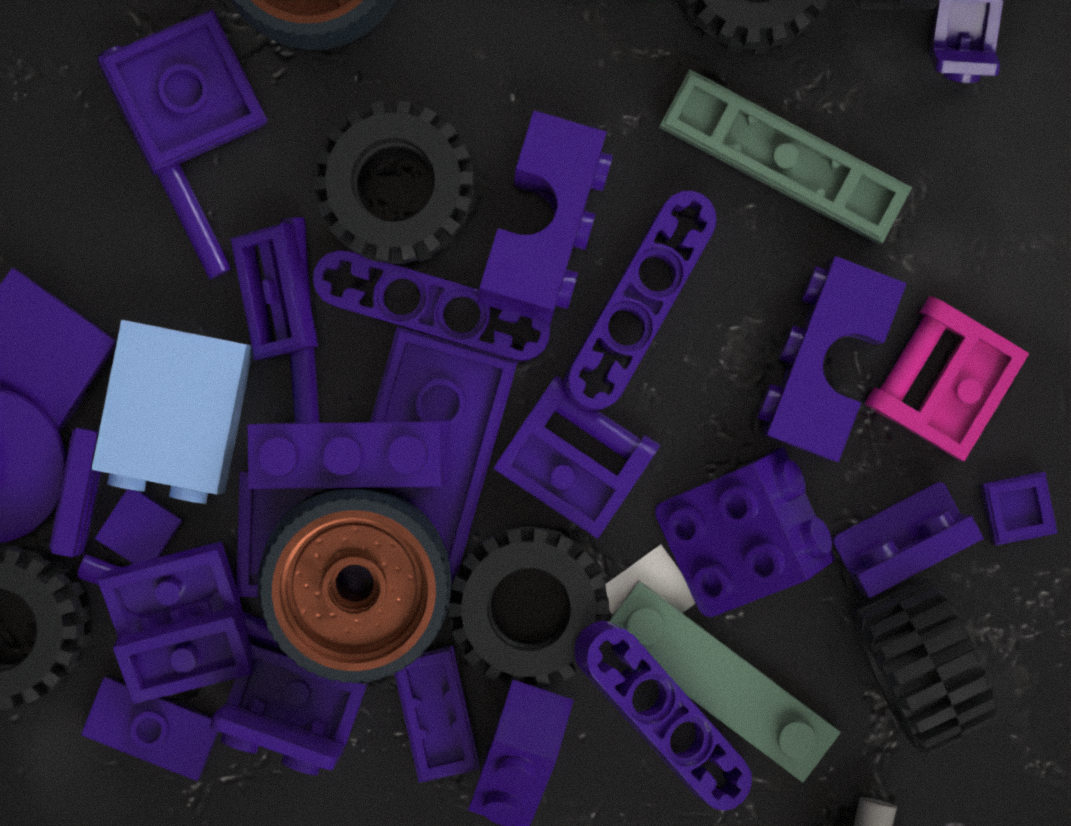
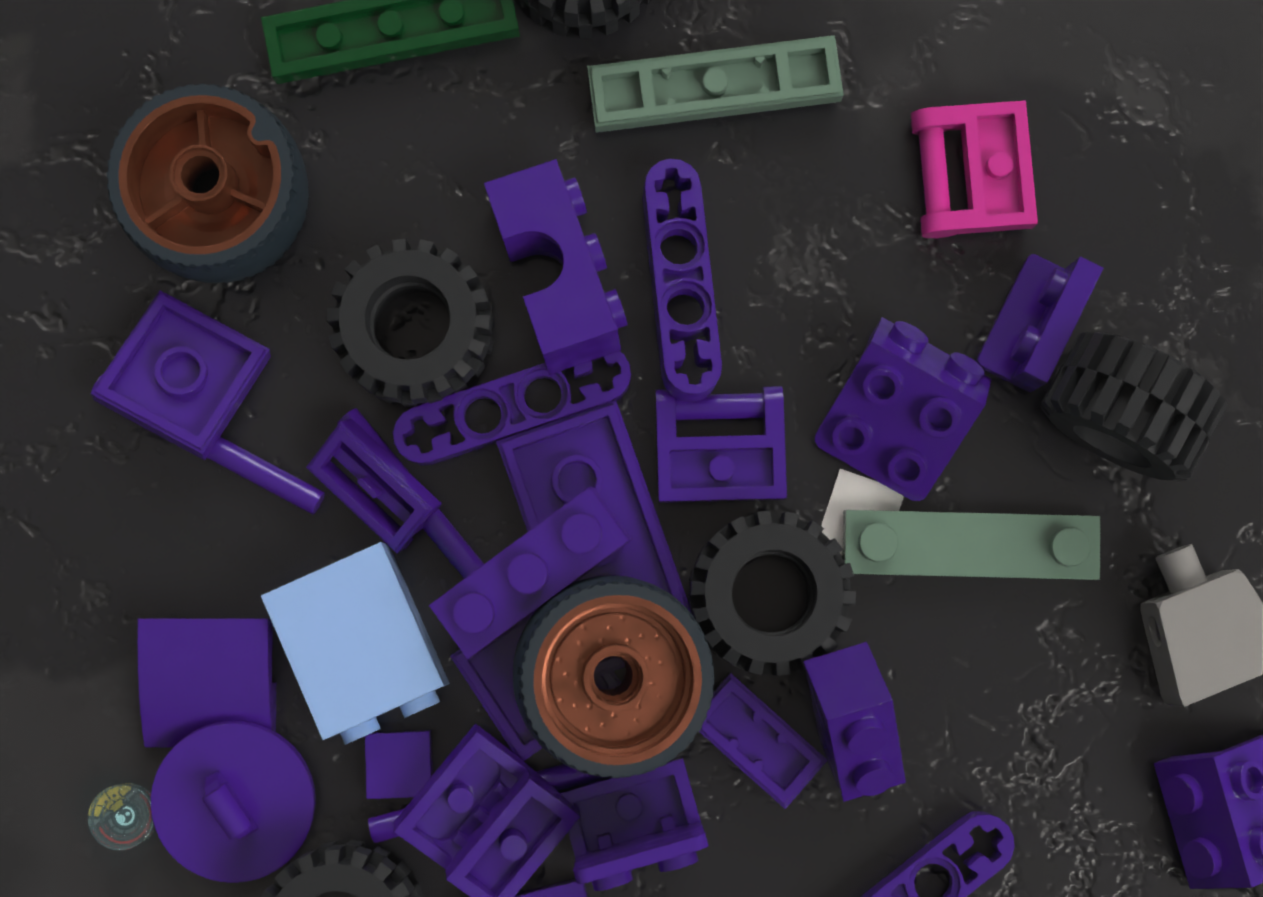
camera: 40 degrees left, 5 degrees down
(76, 496) = (326, 772): dark purple tile -> none
(667, 713) = (950, 598): dark purple beam -> none
(844, 303) = (877, 270): dark purple arch -> none
(1018, 508) = (1107, 232): dark purple tile -> none

